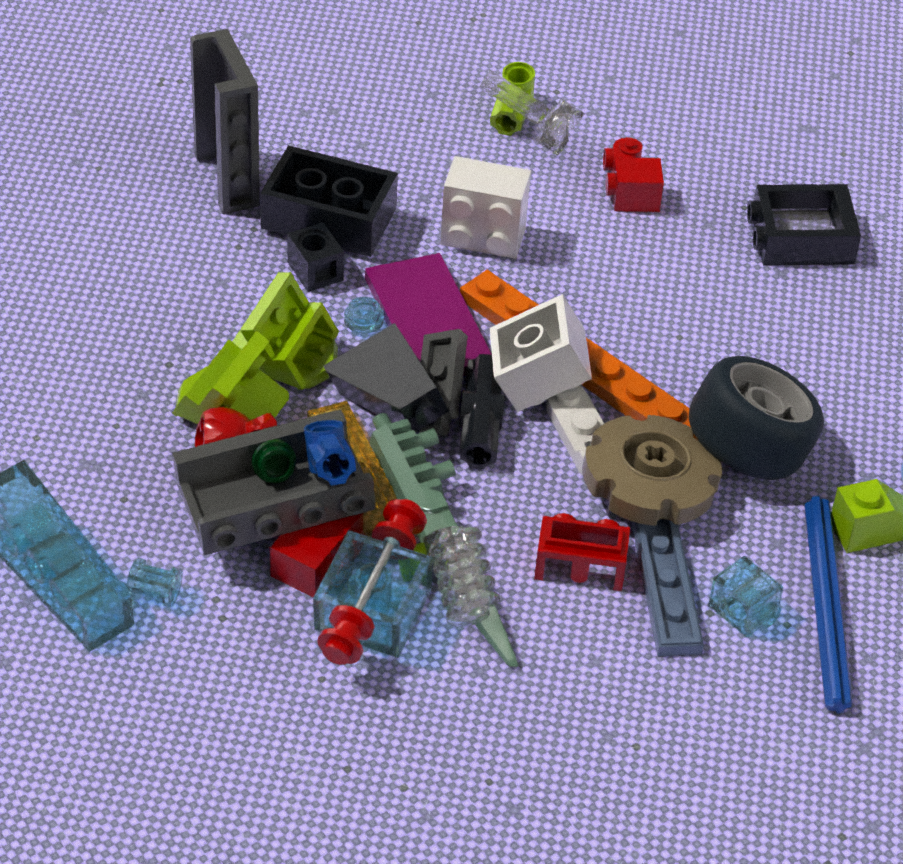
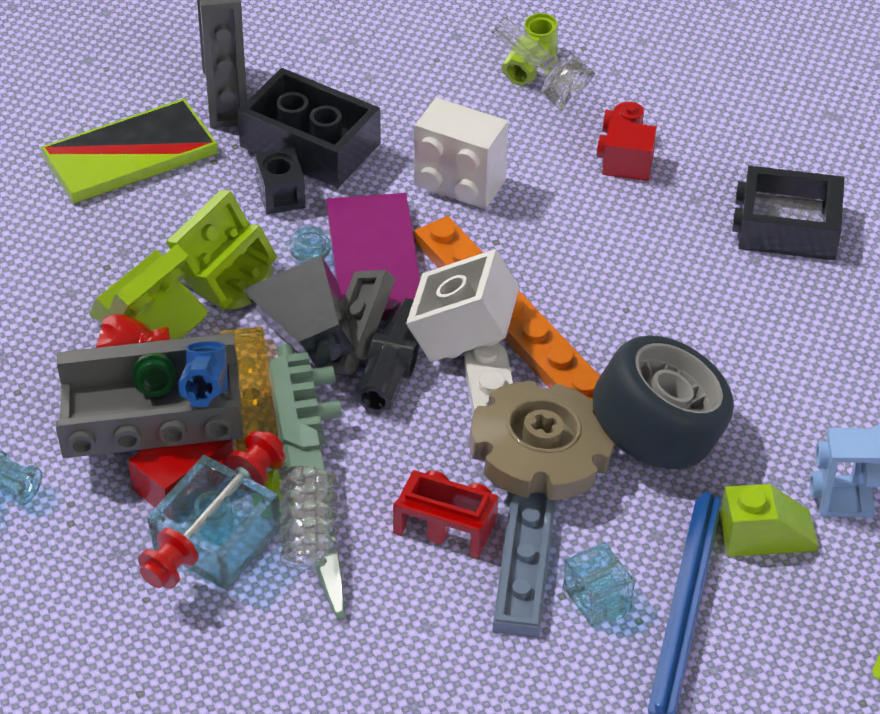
camera: 15 degrees right, 0 degrees up
(152, 246) = (129, 150): none -> tile

